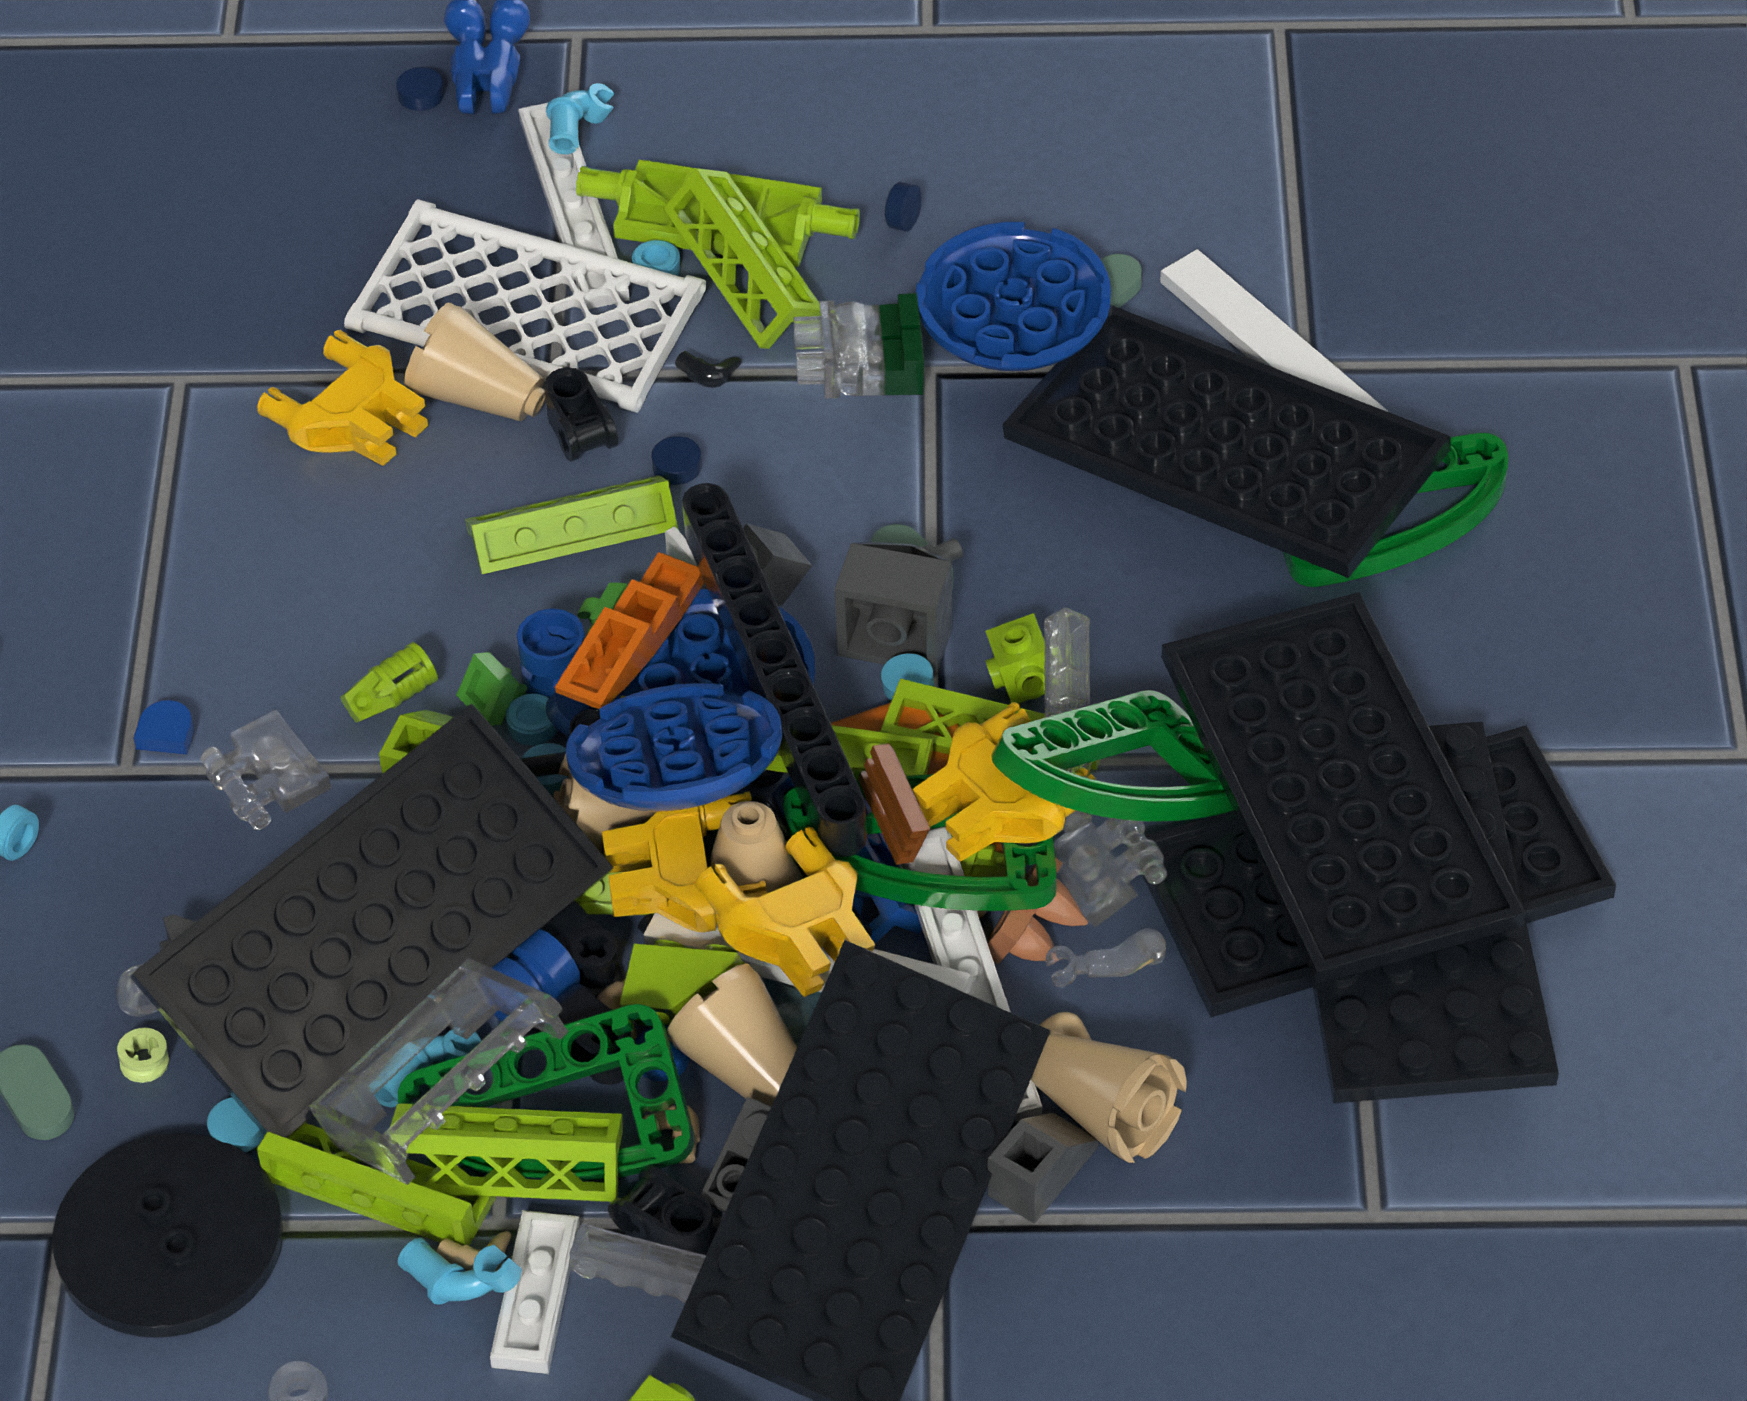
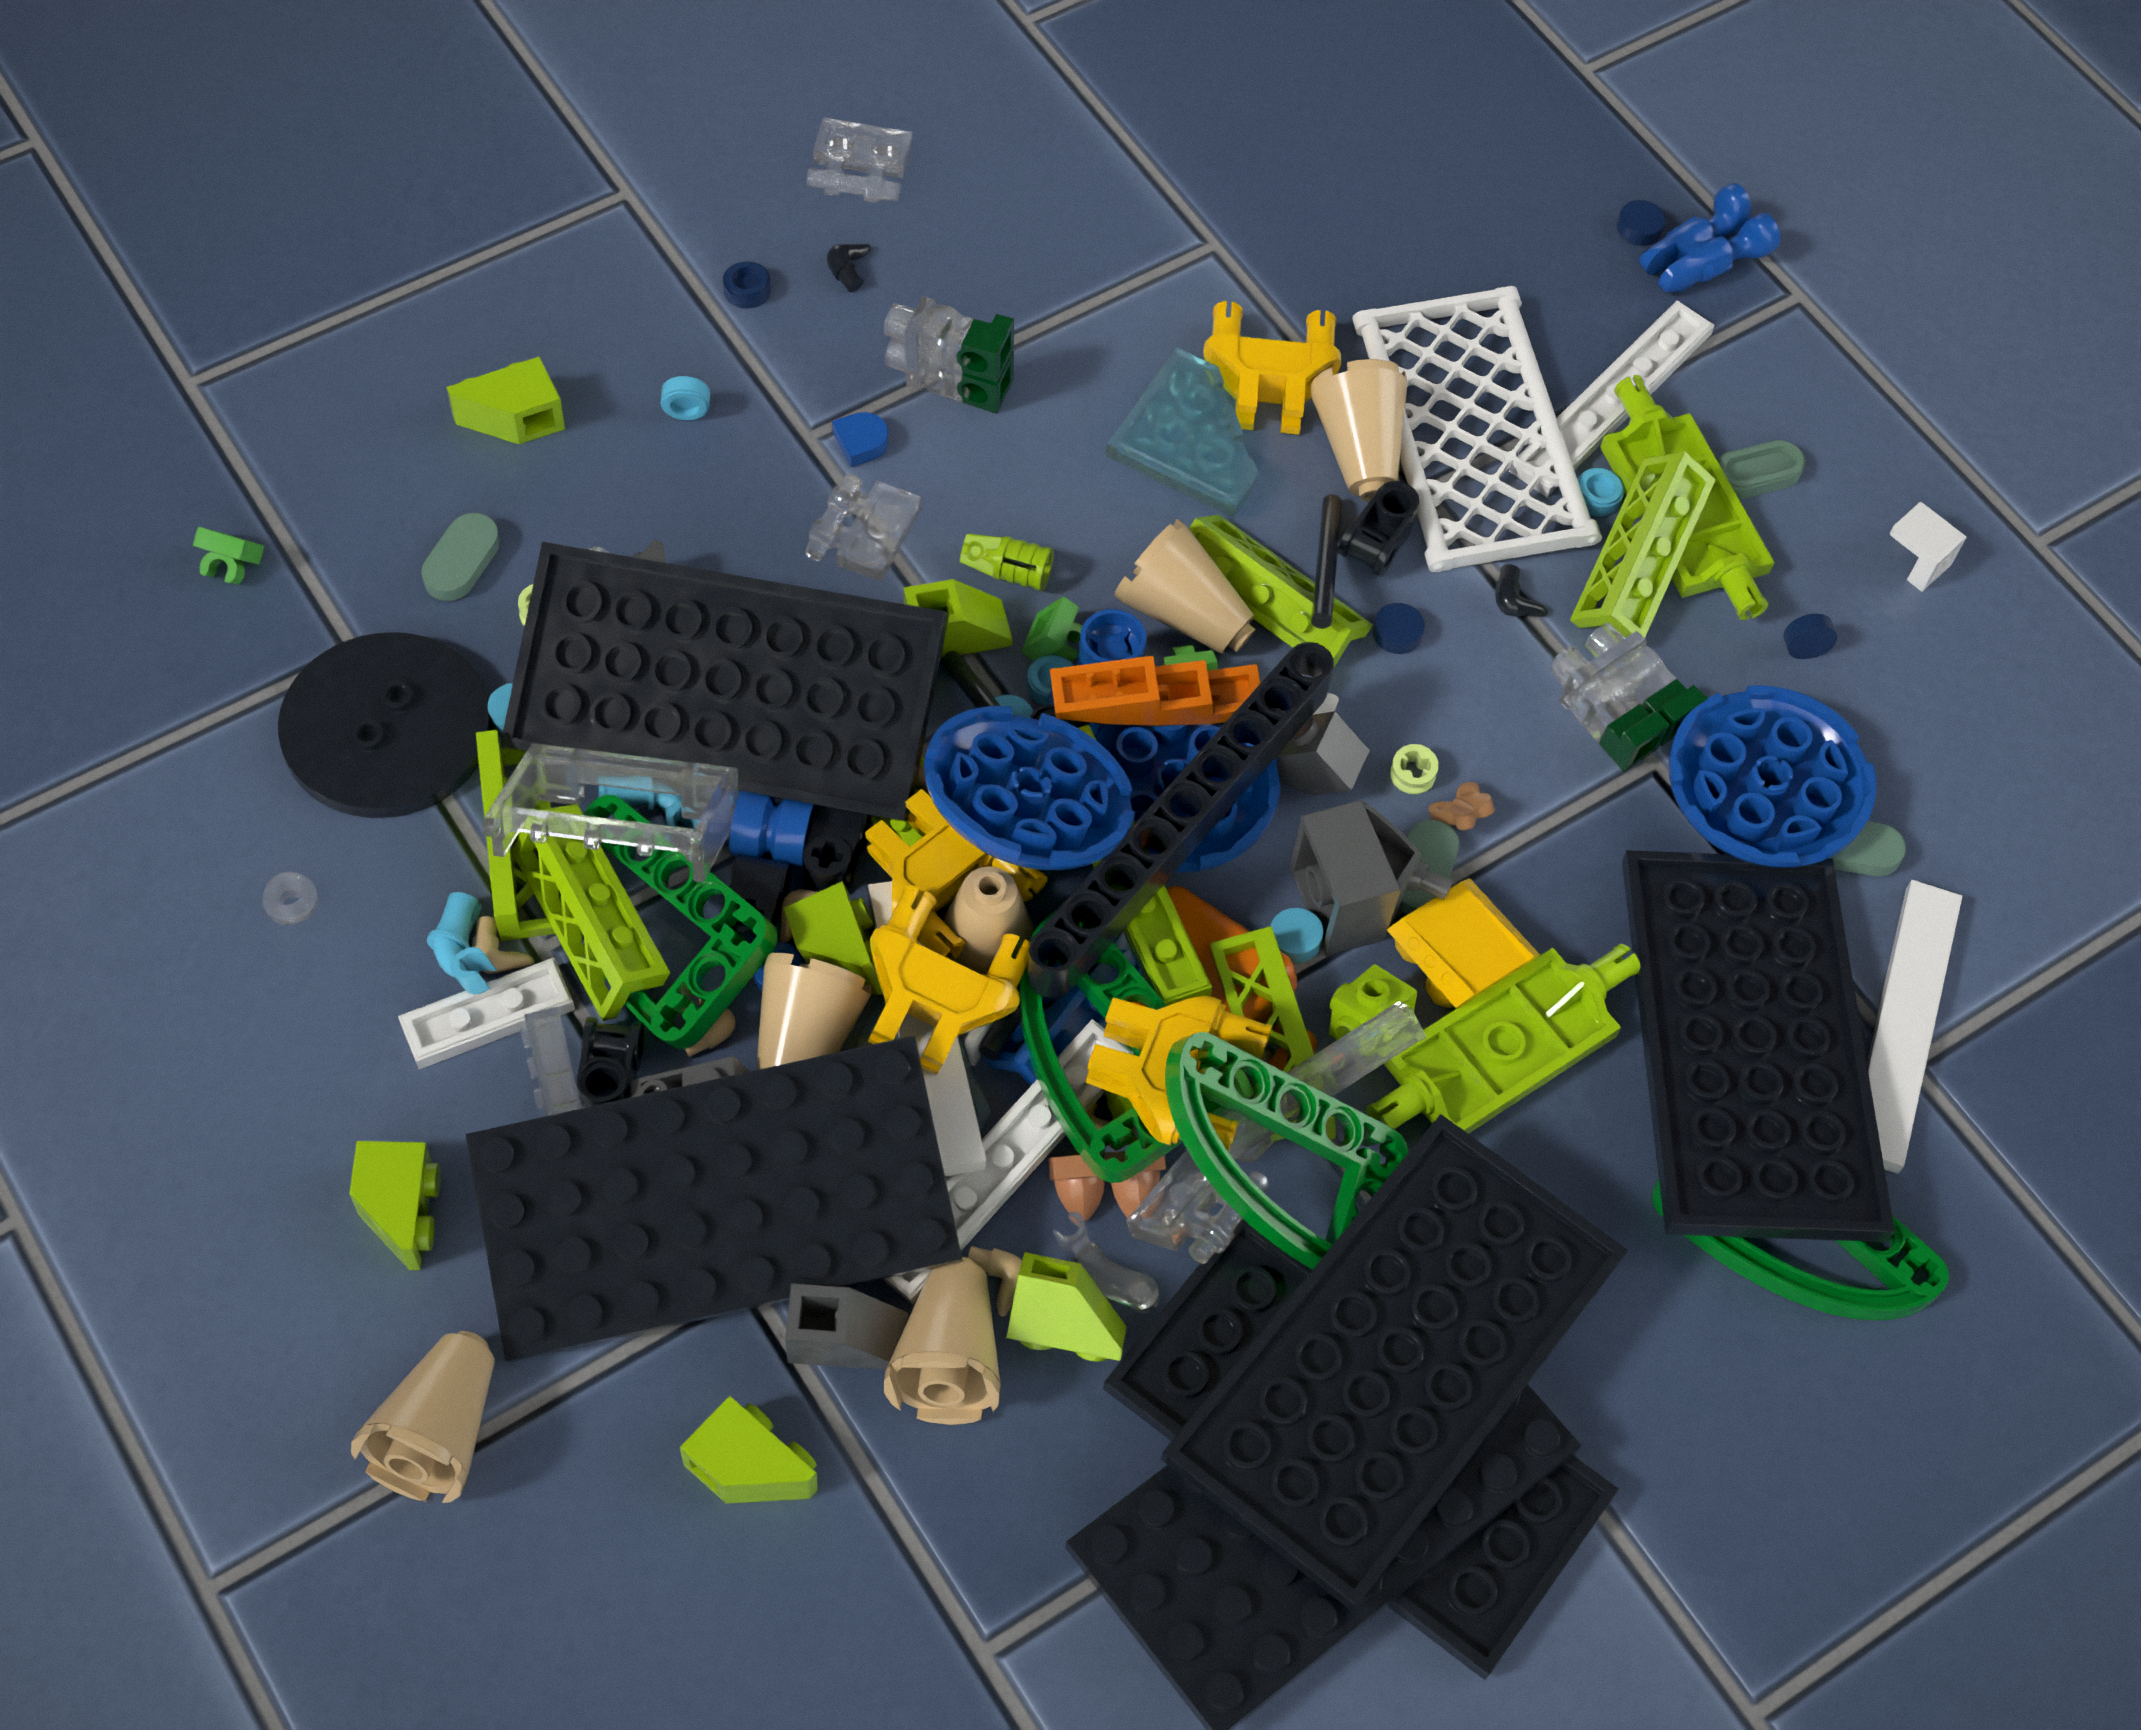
camera: 50 degrees right, 10 degrees up
(150, 607) = (952, 353): none -> hips
(371, 496) = (1188, 436): none -> clear light blue plate
(532, 572) = (1187, 591): none -> tan cone
(569, 109) = (1695, 332): medium azure piece -> none
(584, 463) = (1326, 562): none -> black bar
(723, 145) = (1763, 468): none -> sand green tile
(810, 511) = (1424, 760): none -> yellowish green bush
(881, 82) = (1930, 540): none -> white panel
(881, 506) = (1465, 808): none -> medium nougat piece
(893, 804) = (1099, 993): dark orange tile -> none
(1007, 573) = (1461, 944): none -> yellow slope
(1104, 1286) = (745, 1460): none -> lime slope
(1112, 576) = (1506, 1041): none -> lime plate
(1129, 999) = (1065, 1310): none -> lime slope

